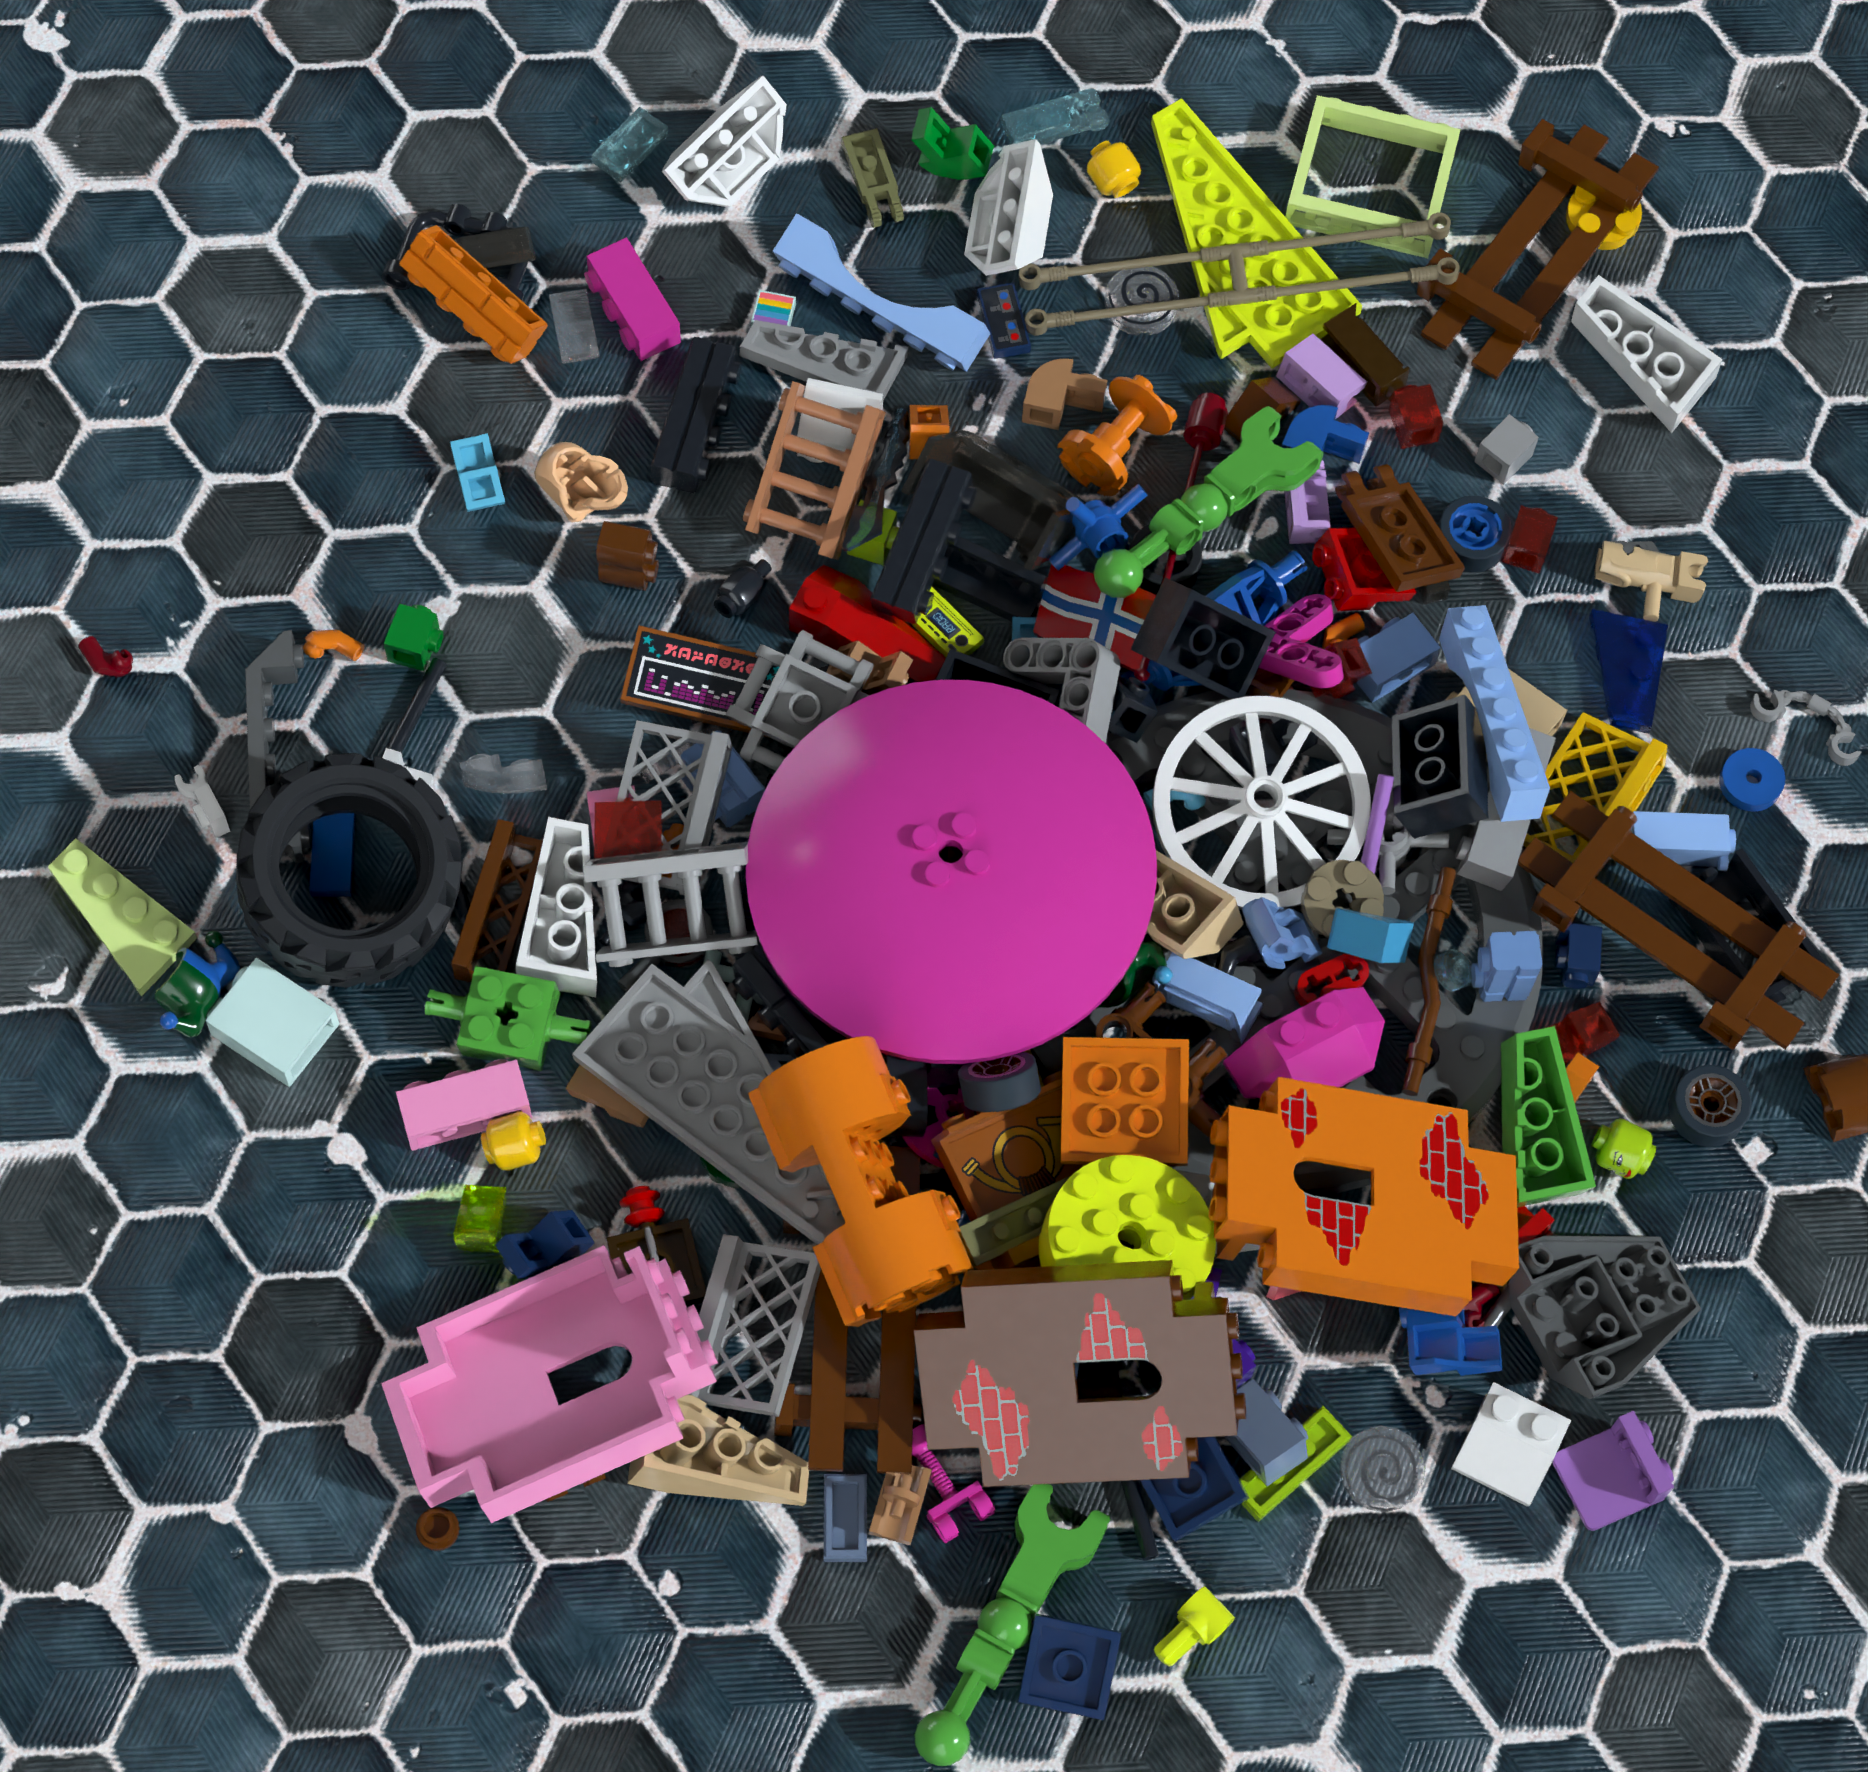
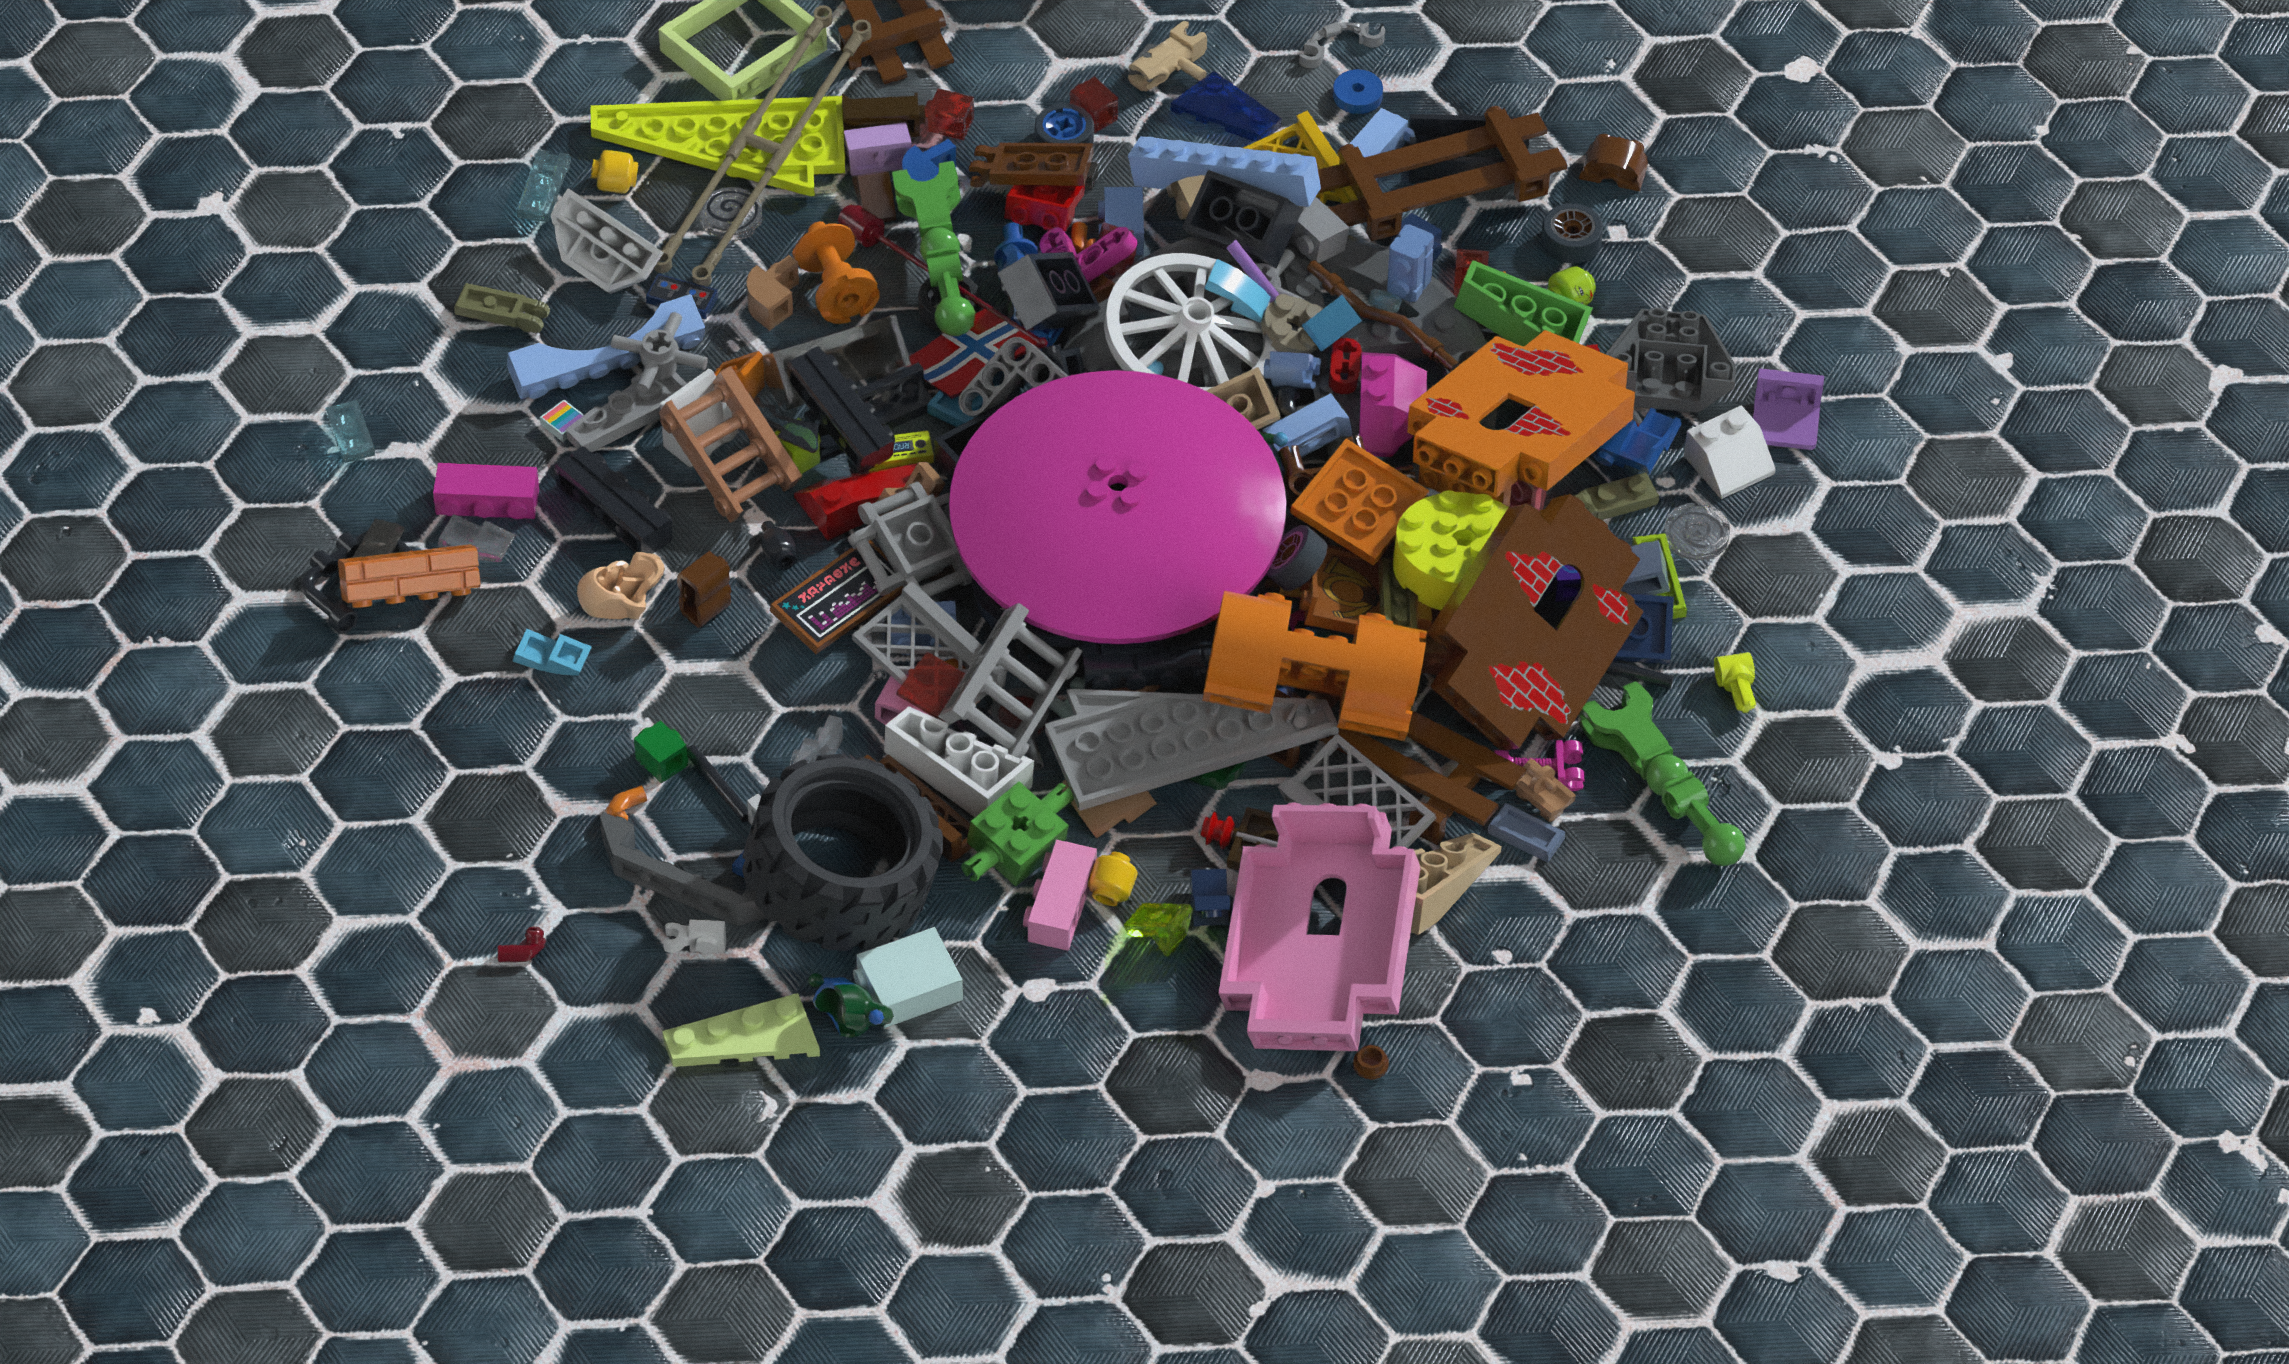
camera: 55 degrees left, 15 degrees down
(730, 147) = (405, 368): white wedge -> none
(888, 330) = (659, 353): none -> light grey bar
(952, 152) = (522, 251): green brick -> none
(1070, 1666) = (1720, 755): dark blue hinge -> none
(1097, 526) = (911, 311): blue bar -> none
(1308, 509) = (977, 214): lavender hinge -> none
(1333, 818) = (1234, 285): none -> medium azure slope
(1366, 1355) = (1619, 496): none -> olive hinge
(1506, 449) = (1015, 81): light grey brick -> none

